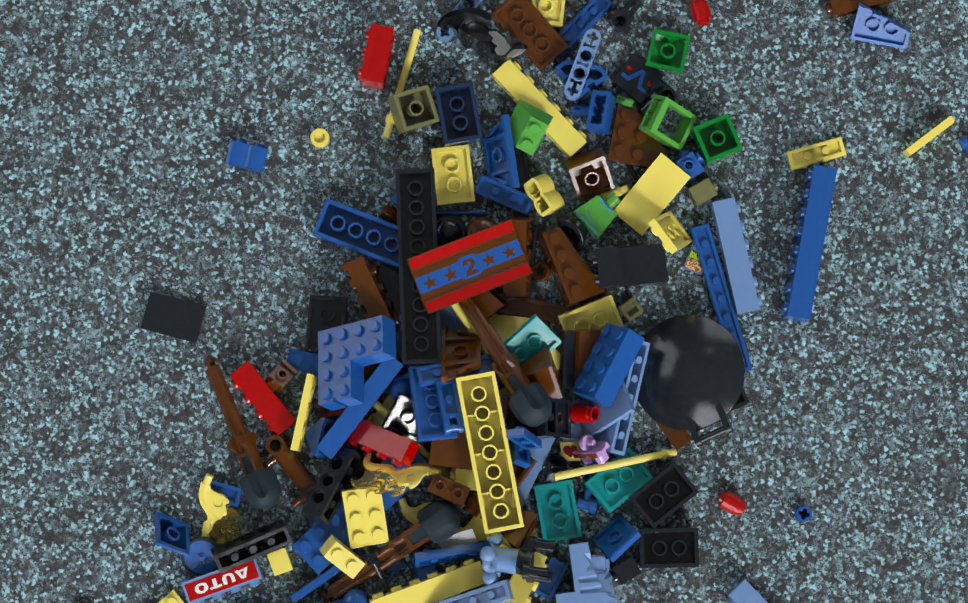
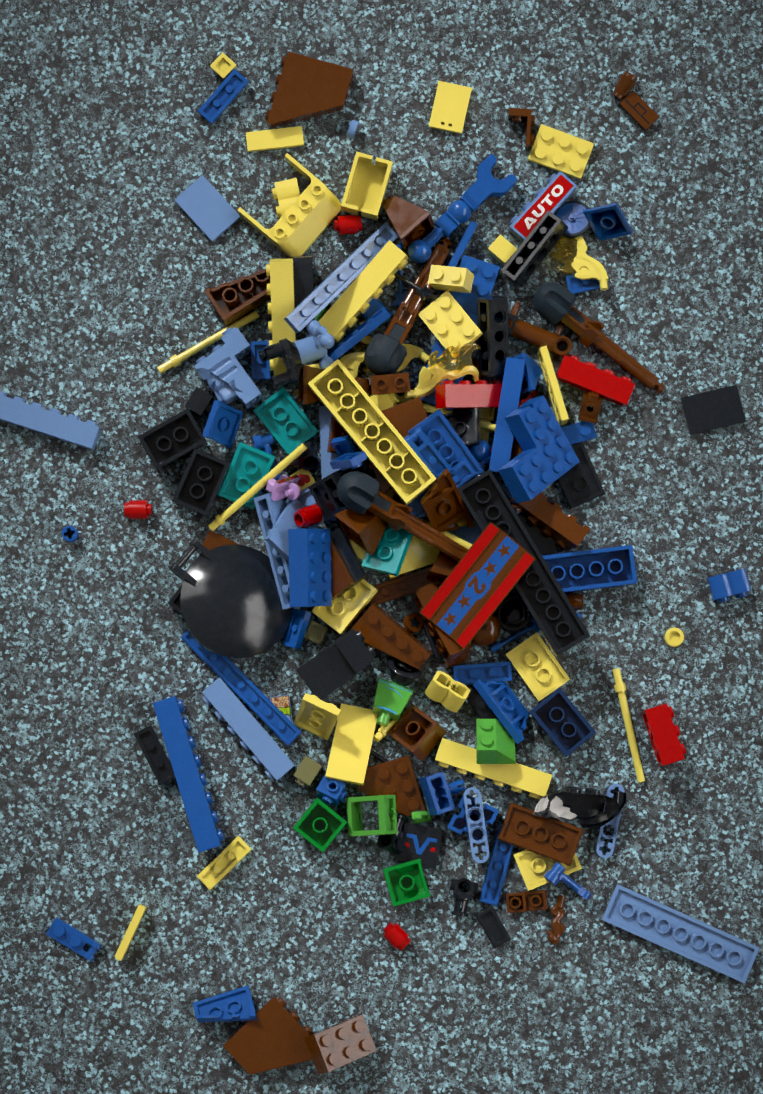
camera: 155 degrees right, 0 degrees up
(413, 109) = (604, 704): olive brick -> none
(461, 538) = (357, 350): white sticker -> none
(647, 319) = (296, 628): none -> blue plate
(828, 278) = (155, 754): none -> black plate

